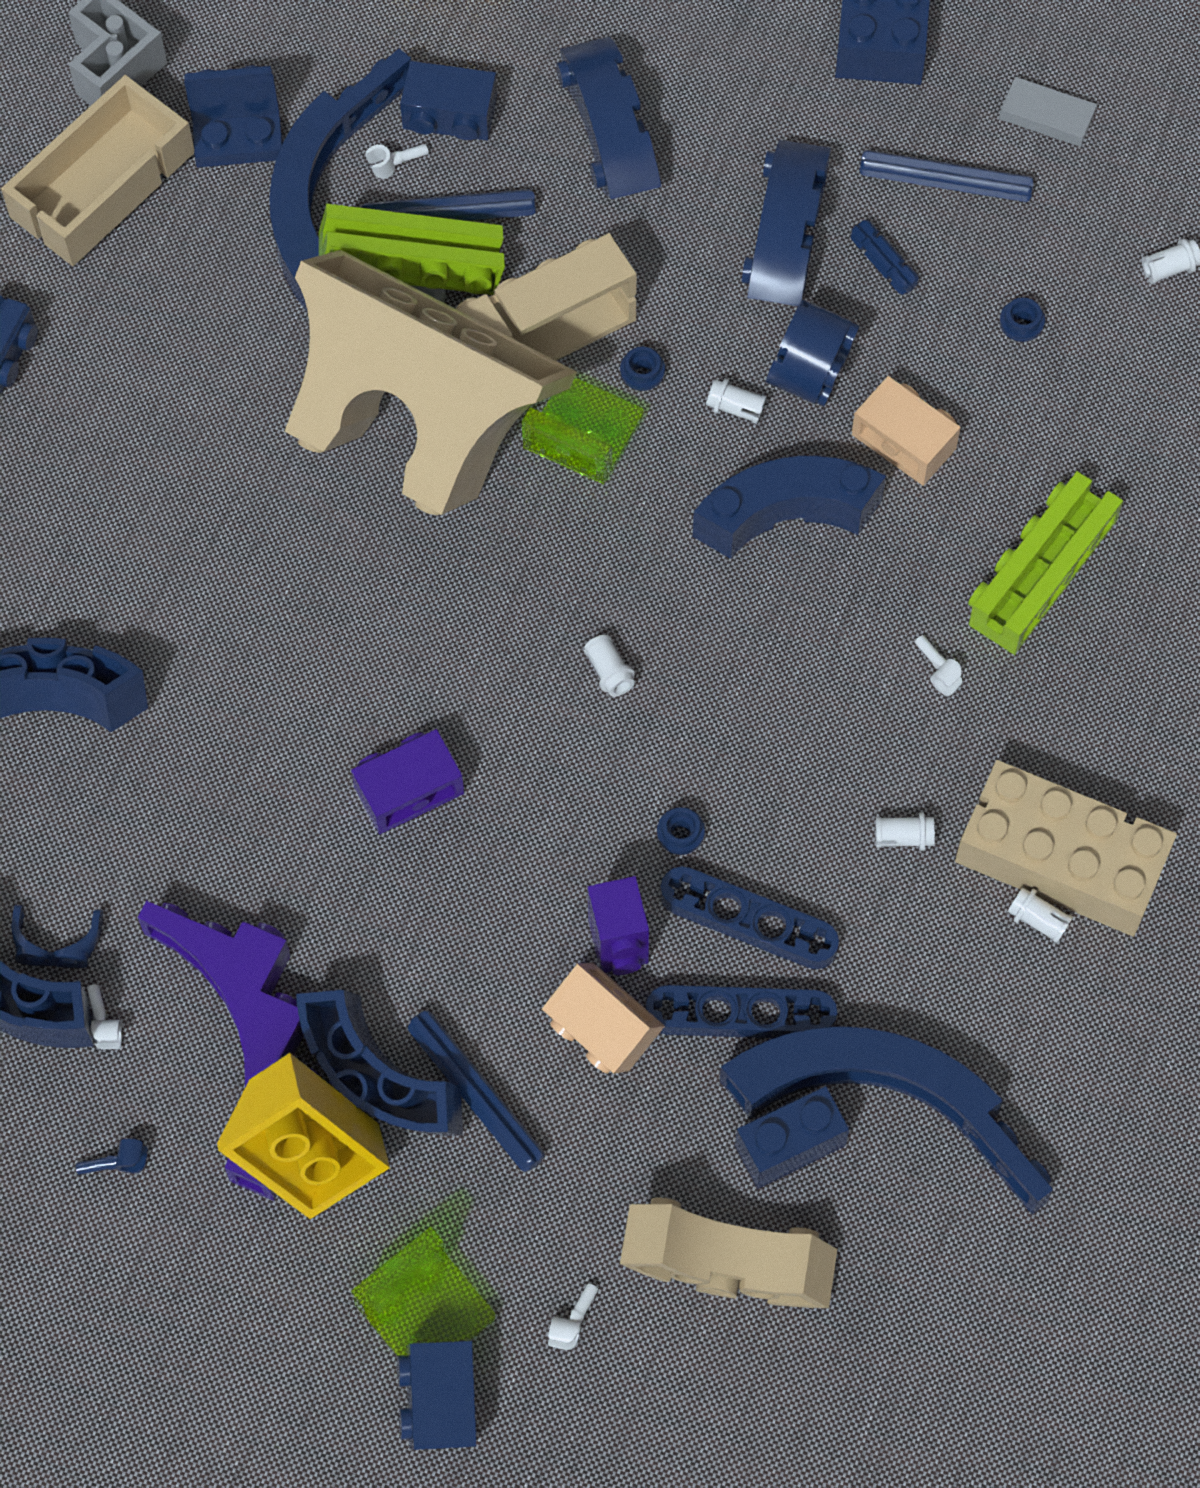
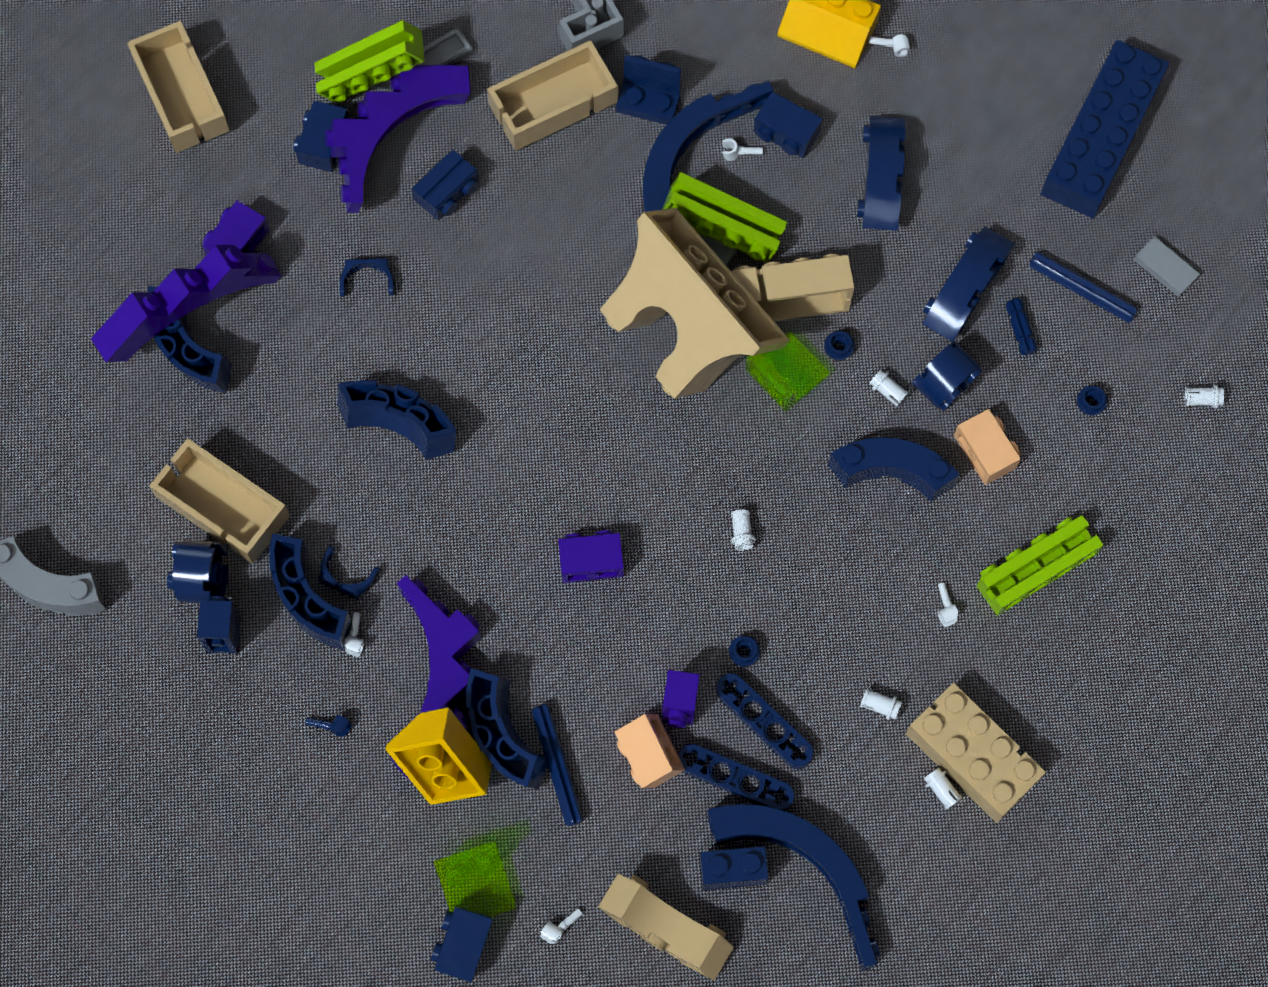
camera: 20 degrees right, 5 degrees up
(465, 207) = (763, 196): dark blue axle -> none

